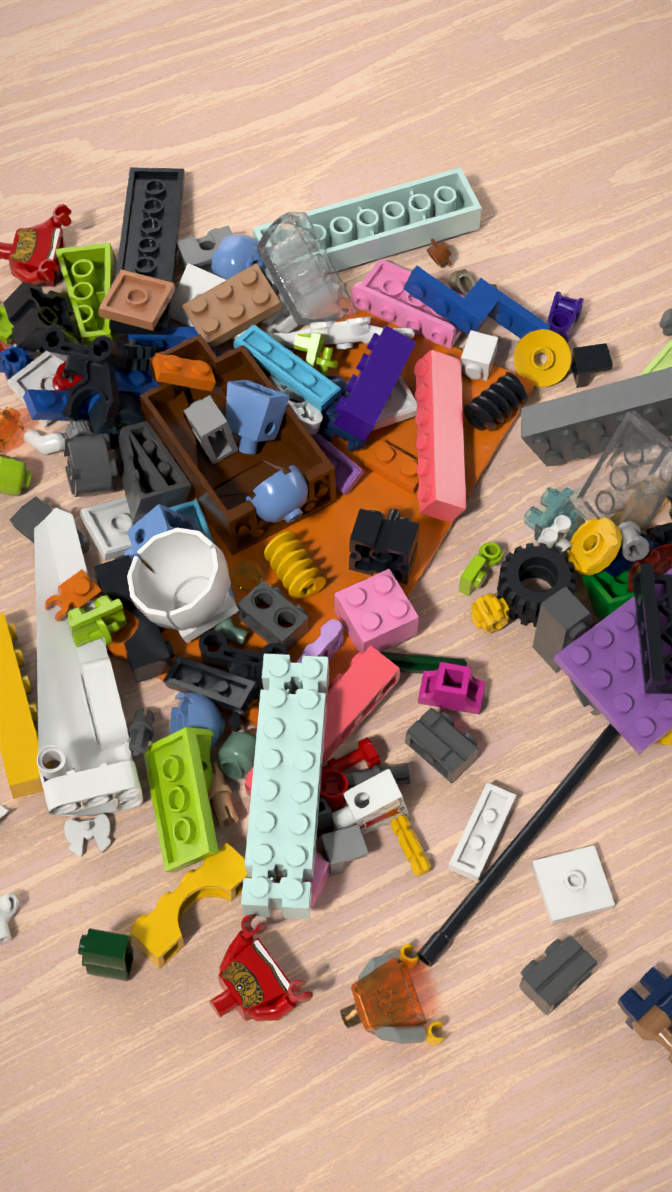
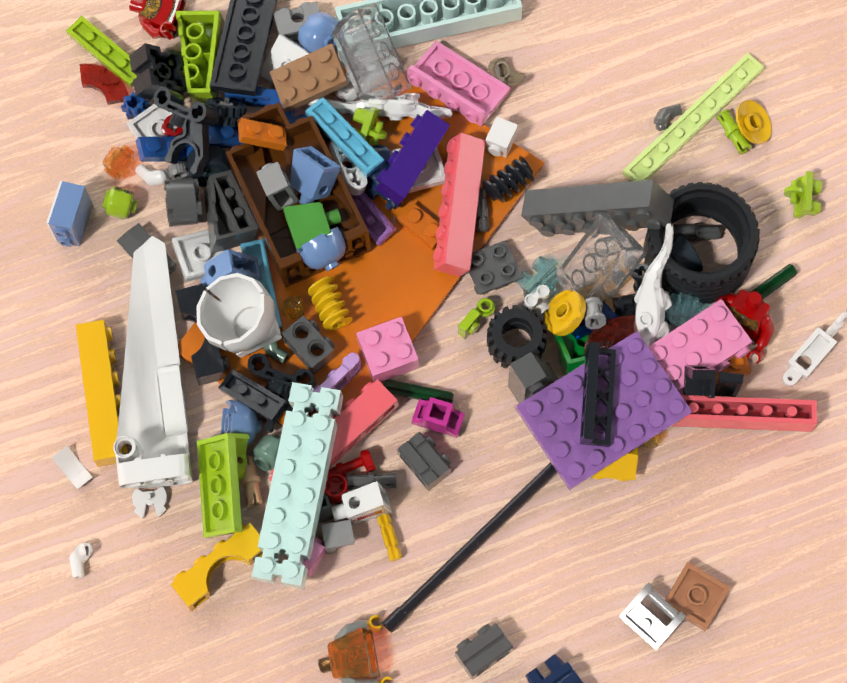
camera: 10 degrees right, 10 degrees up
(74, 593) = (160, 309): orange plate -> none
(97, 623) = (174, 336): lime hips -> none
(107, 954) = (151, 599): dark green brick -> none
(136, 300) = (233, 66): nougat plate -> none
(141, 731) = (197, 427): dark grey axle -> none
(250, 467) = (309, 221): none -> bright green torso
(254, 980) = (258, 630): red torso -> none
(383, 544) = (401, 295): black brick -> none
(439, 253) = (485, 40): dark orange plate -> none
(471, 456) = (482, 212): none -> dark grey axle
(473, 309) = (504, 96): blue bracket -> none
(482, 832) = (444, 533): white plate -> none
(490, 613) = (477, 357): yellow gear -> none
(493, 508) = (493, 268): none -> dark grey hinge
(553, 347) = (553, 154): yellow dish -> none
(564, 314) = (577, 104): dark purple piece -> none
(572, 885) = (507, 581): white plate -> none
(589, 360) = (591, 149): black panel -> none

